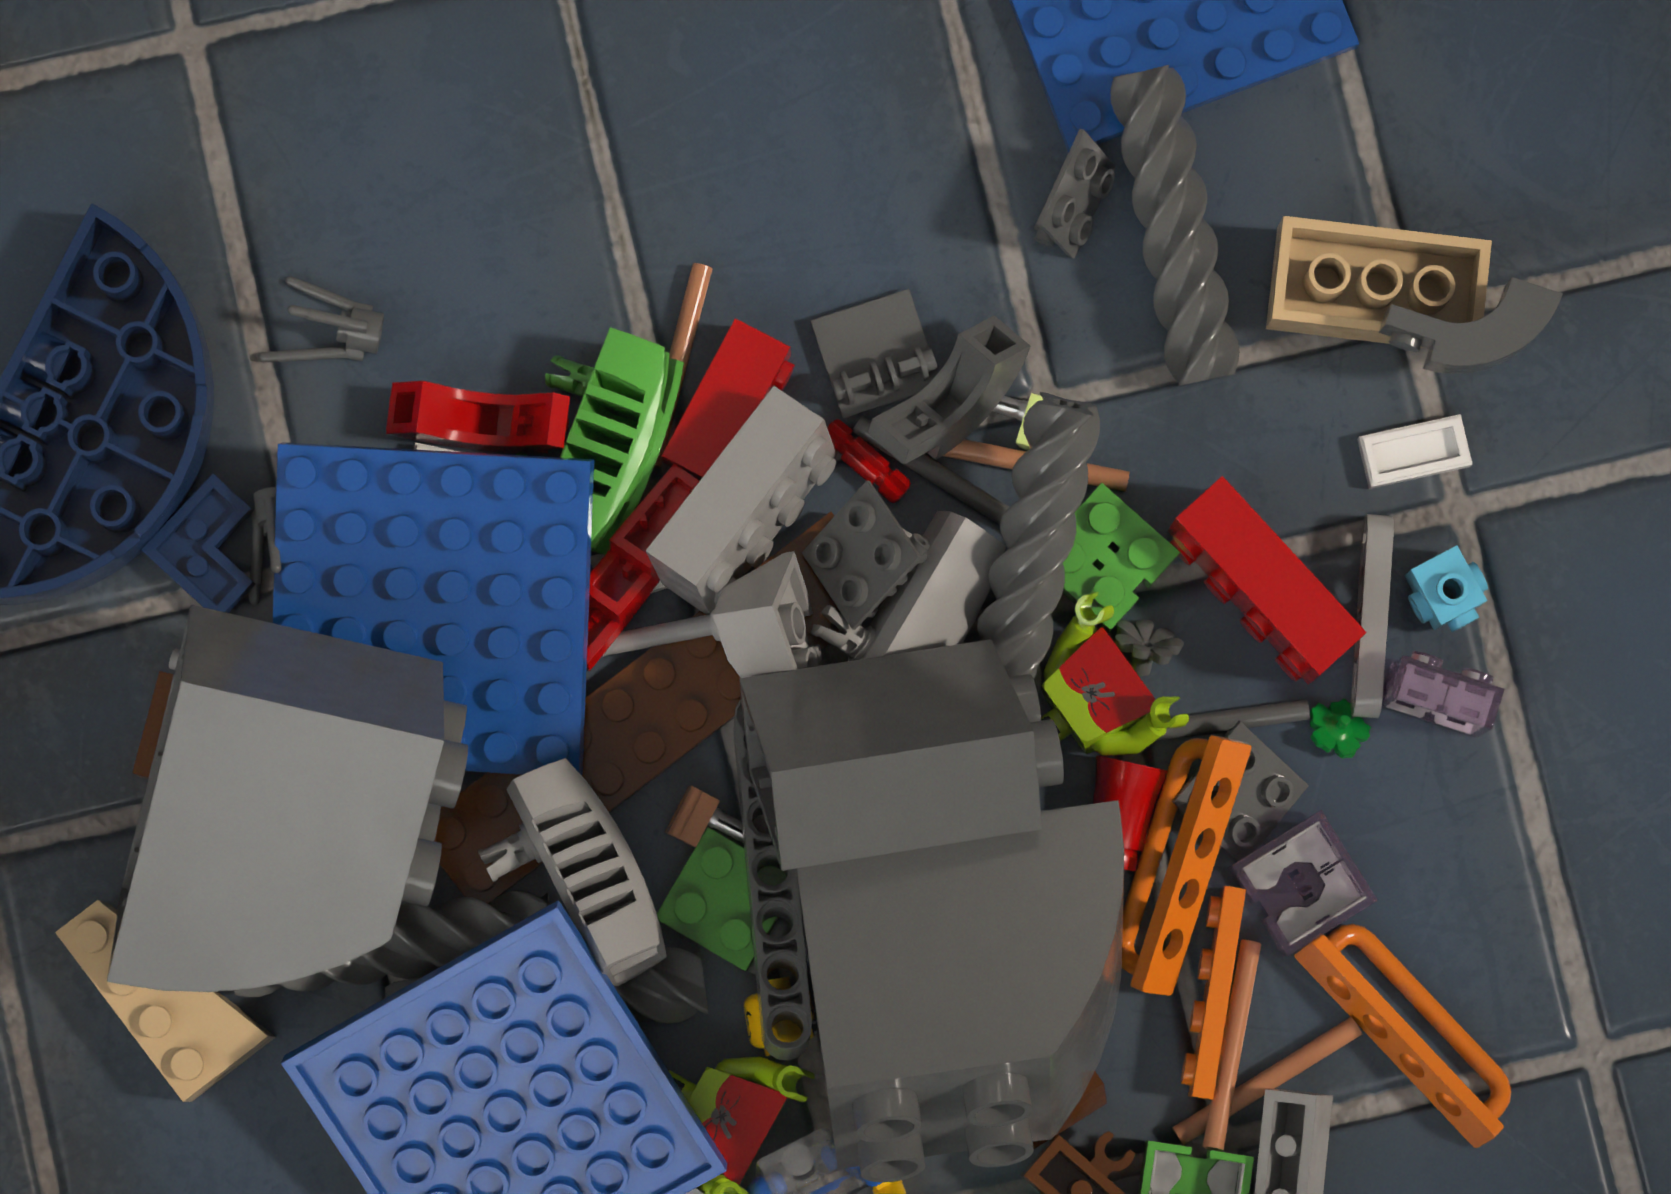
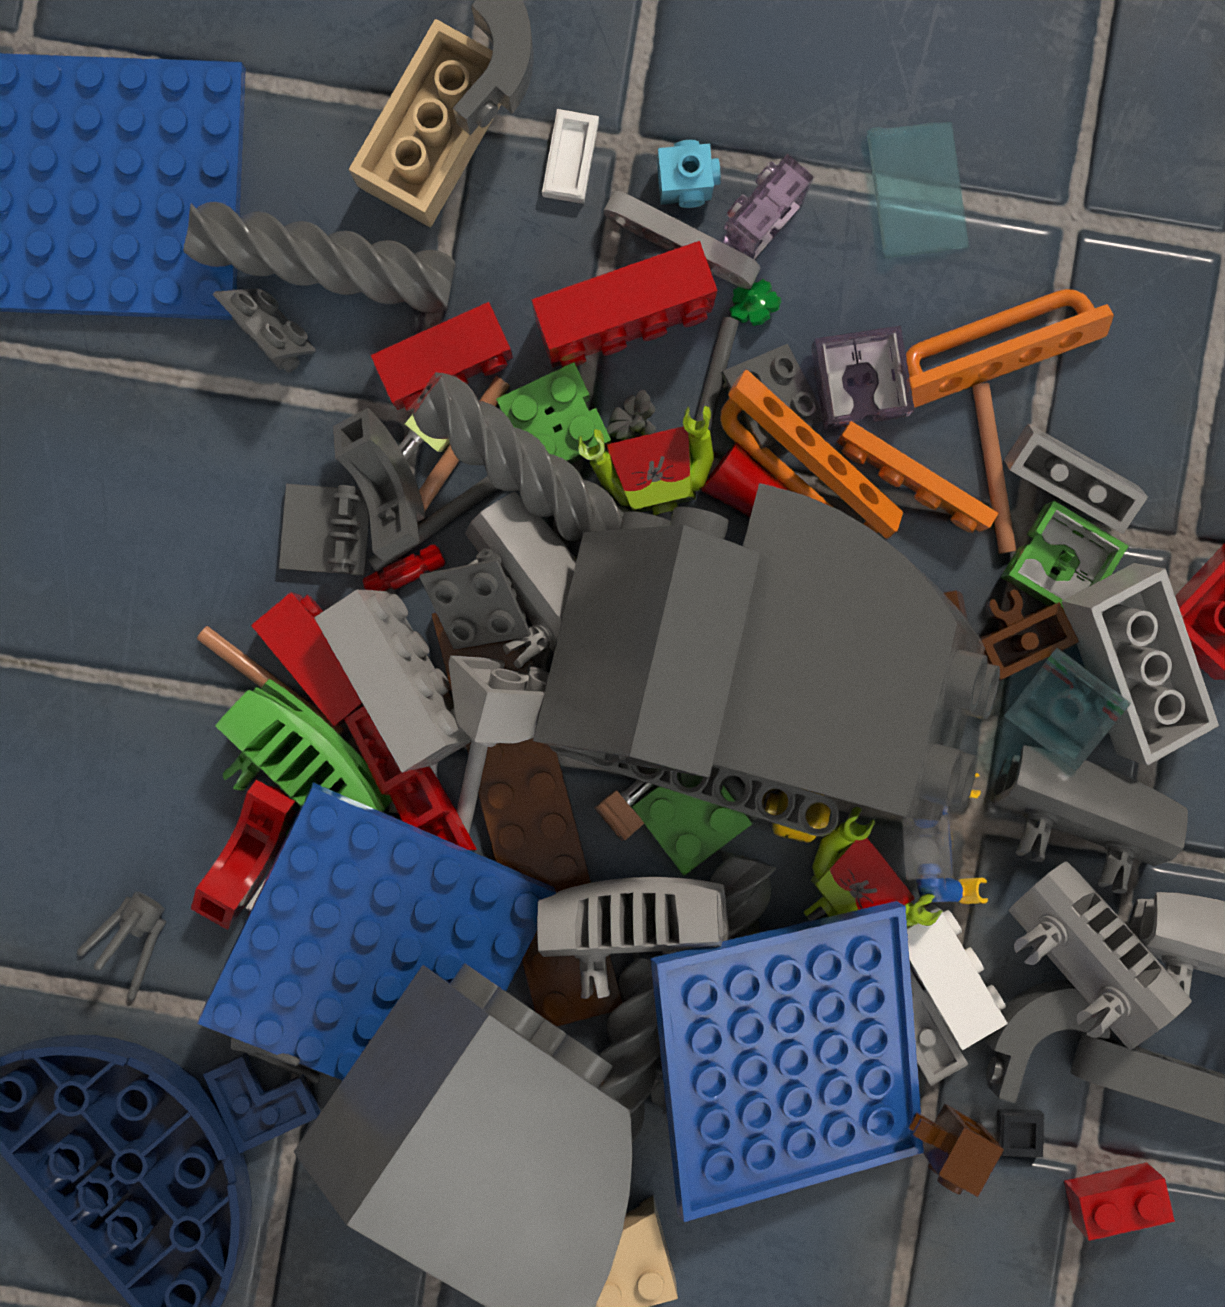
camera: 70 degrees left, 5 degrees up
(1129, 404) = (455, 347): none -> red brick
(1232, 1045) = (1006, 512): nougat bar -> none
(1549, 860) = (917, 189): none -> clear light blue piece

